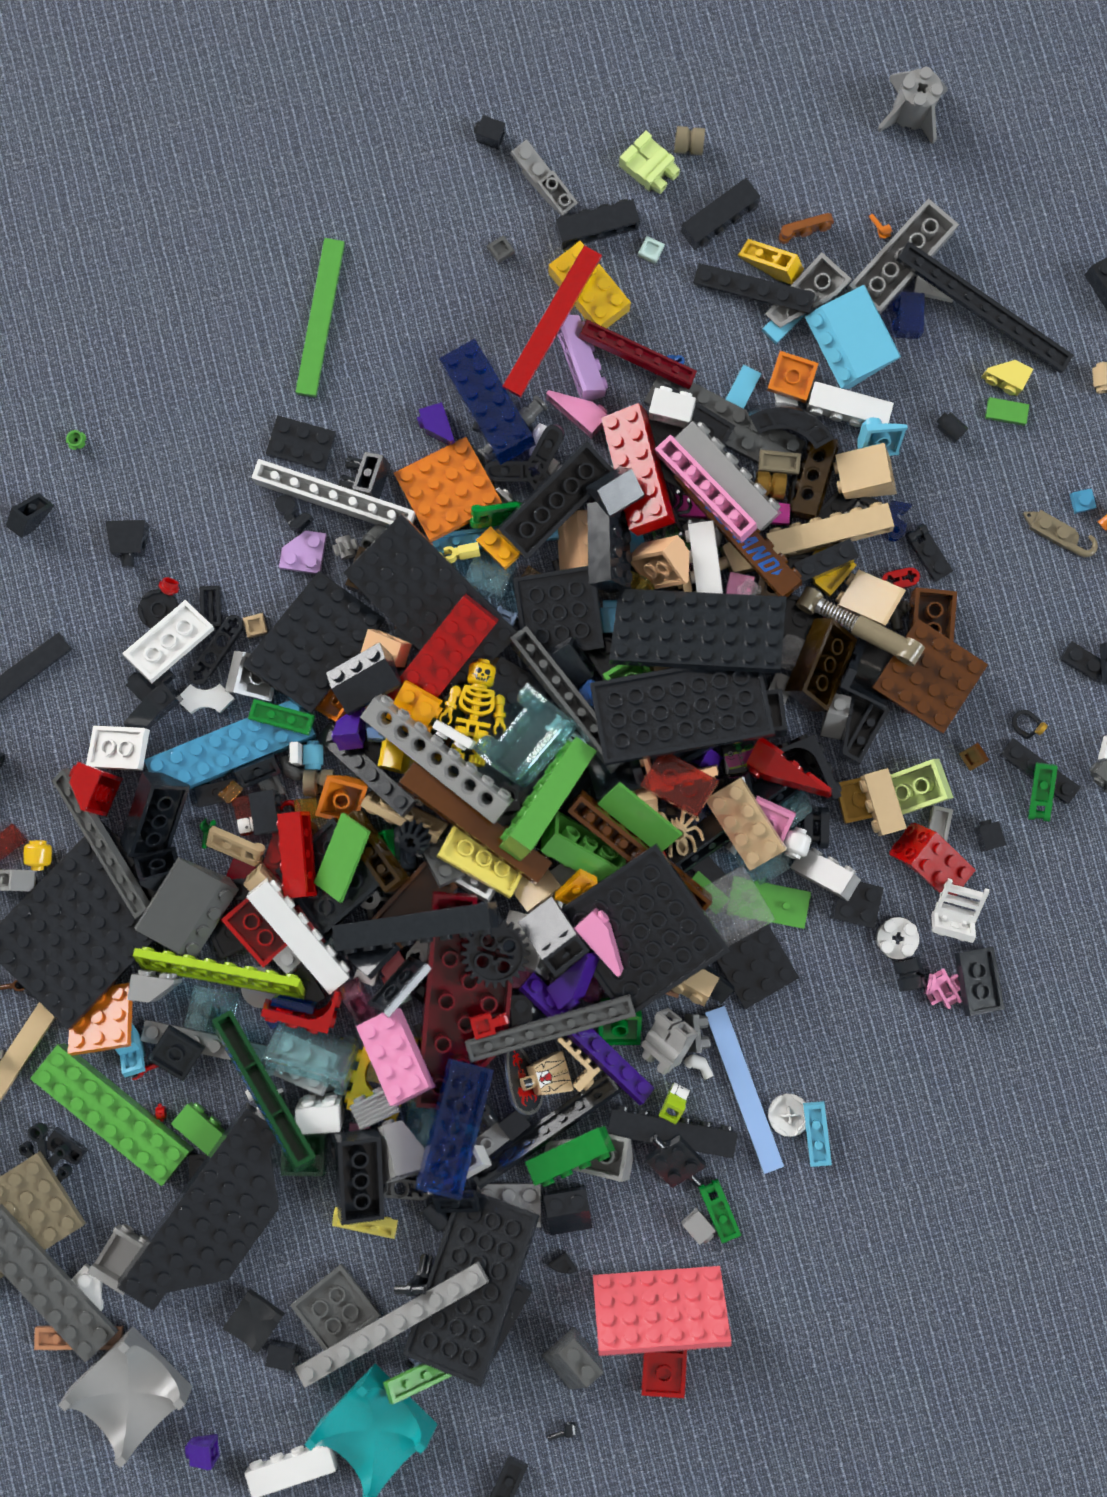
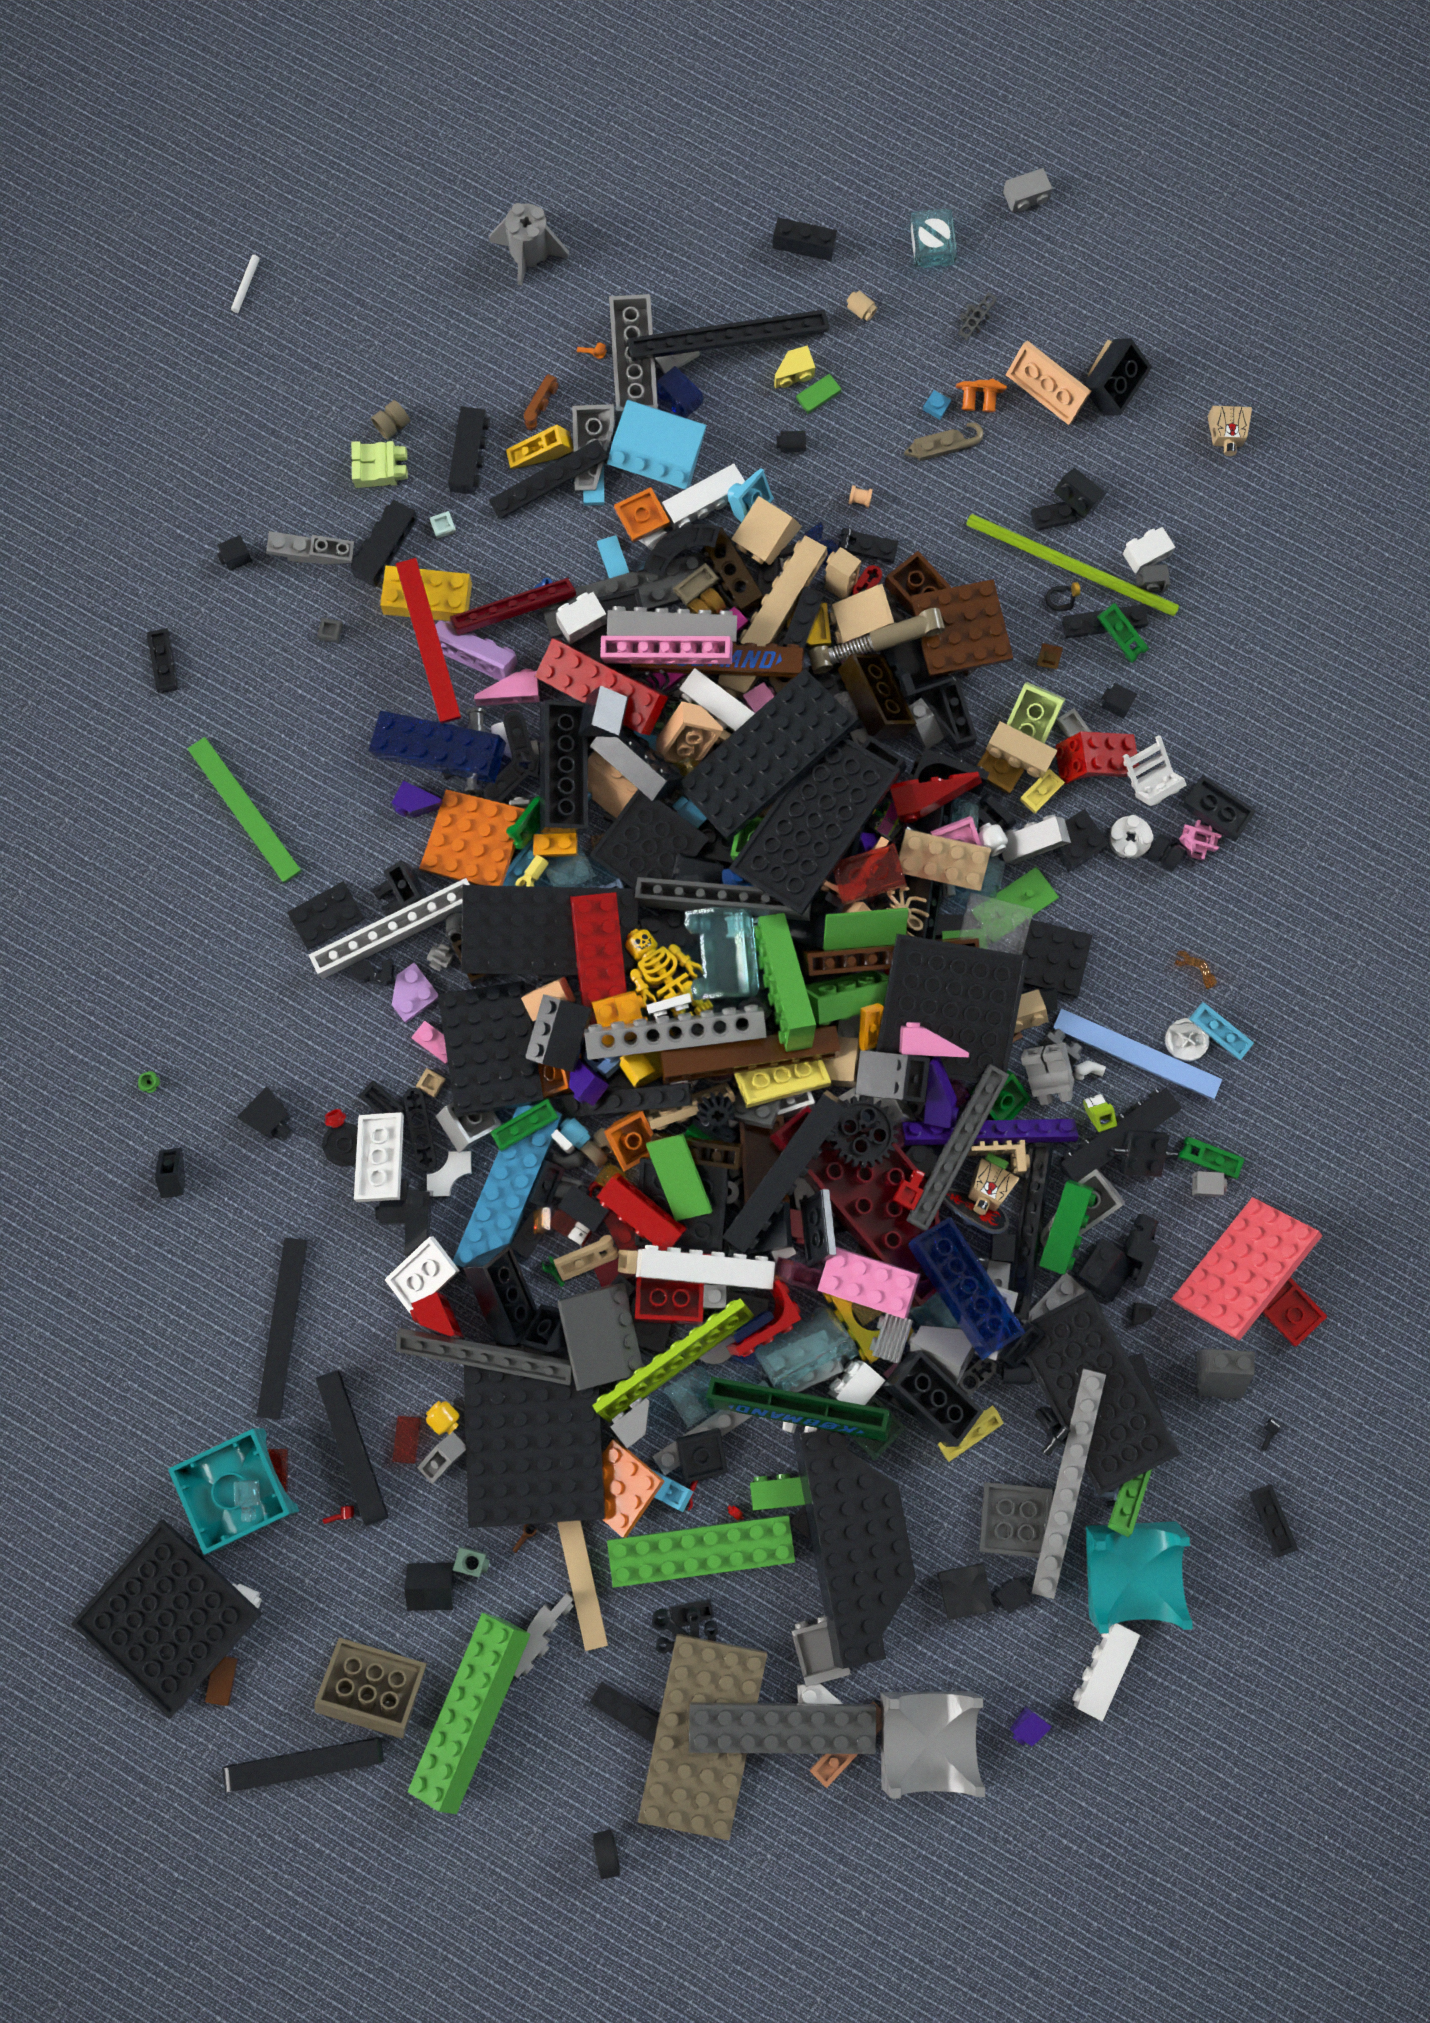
camera: 45 degrees left, 5 degrees down
(284, 596) = (431, 1040): none -> bright pink plate
(369, 161) = (162, 660): none -> black tile
(570, 1063) = (996, 1160): none -> bright green tile
(606, 1221) = (1141, 1249): none -> black plate
(749, 583) = (765, 689): clear plate -> none
(848, 1088) = (1208, 978): none -> clear orange arm
(869, 844) = (1041, 791): none -> light yellow plate
(886, 554) = (841, 573): none -> tan brick
(959, 513) = (860, 496): none -> light nougat bush
(1059, 709) = (1072, 565): none -> lime axle

